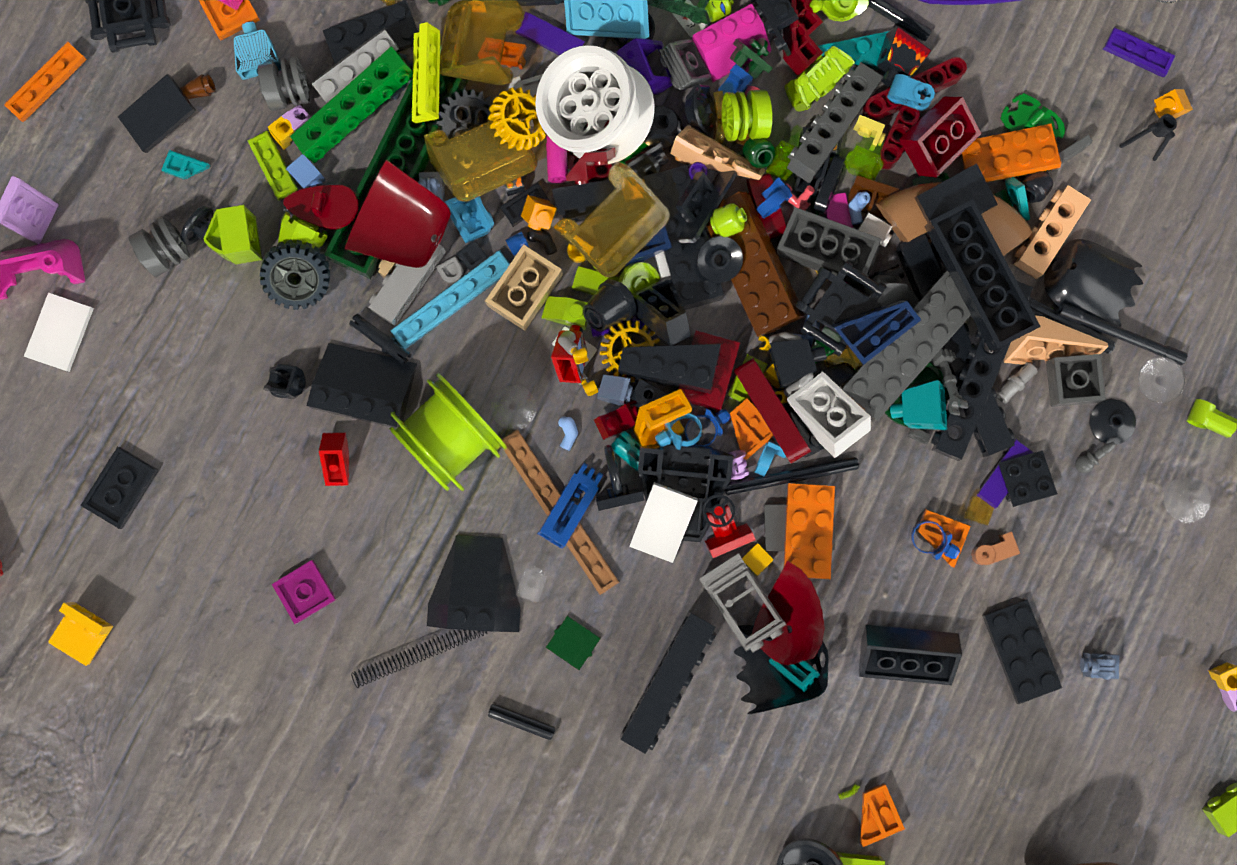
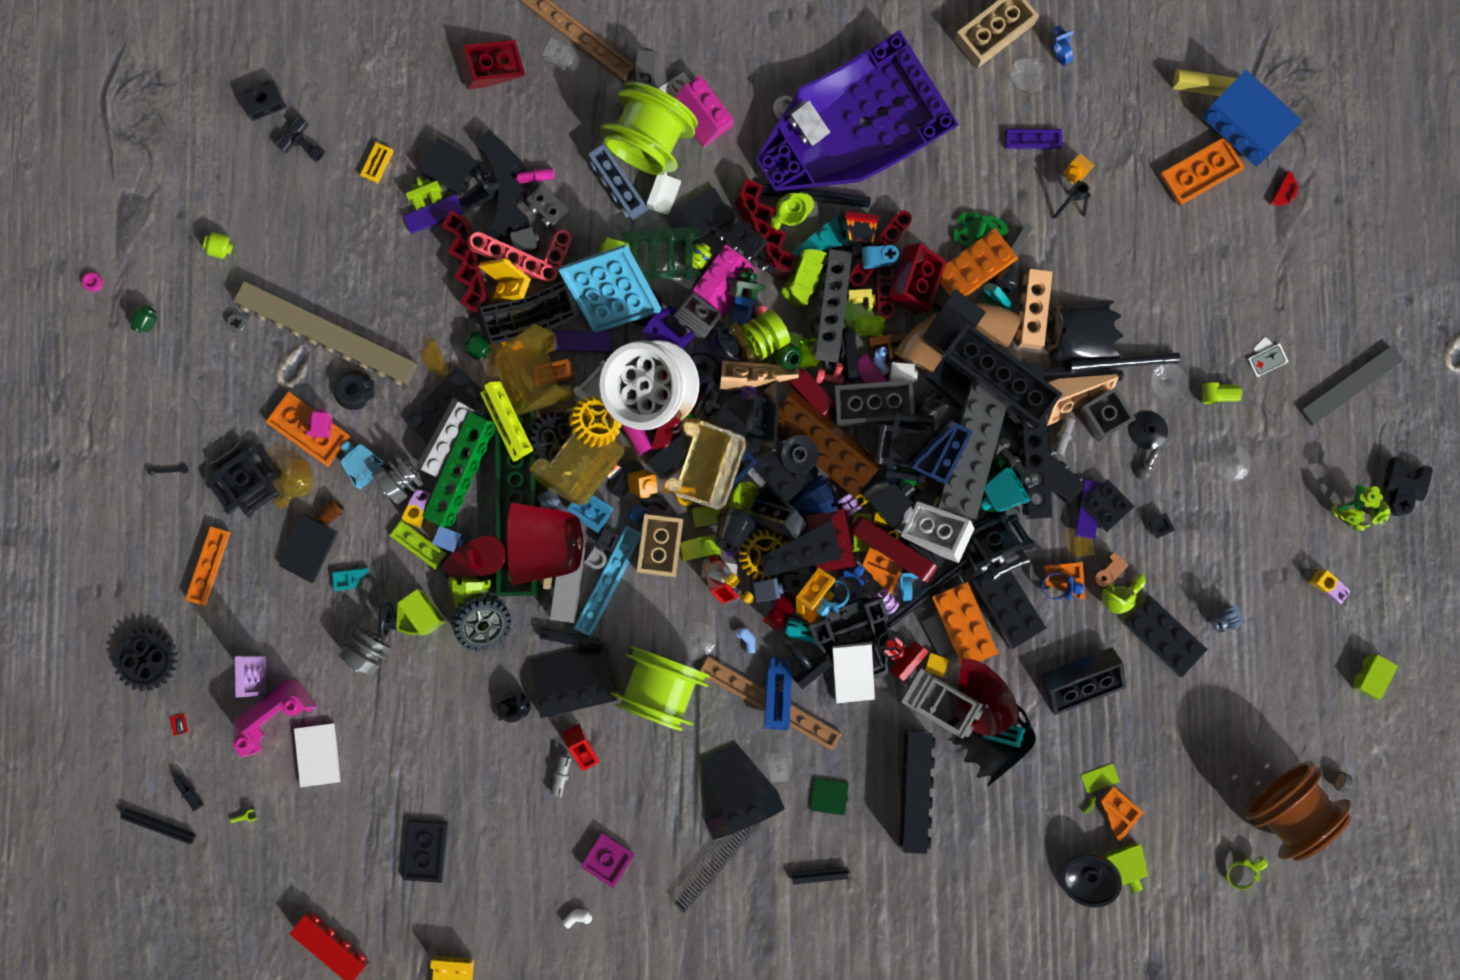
camera: 30 degrees left, 0 degrees up
(177, 37) = (295, 482): none -> clear yellow piece
(244, 635) = (578, 915): none -> white arm
(299, 478) = (561, 776): none -> light grey pin
(715, 317) = (815, 498): none -> dark blue cone
(728, 220) = (792, 422): lime head -> none
(744, 335) = (846, 506): none -> lavender bush
(774, 197) = (817, 384): blue piece -> none
(866, 532) = (1008, 607): none -> black brick
(875, 769) = (1100, 778): none -> lime sticker
(887, 458) = (996, 543): none -> black brick
(993, 586) = (1120, 598): none -> lime piece
(1076, 529) = (1161, 525): none -> black plate

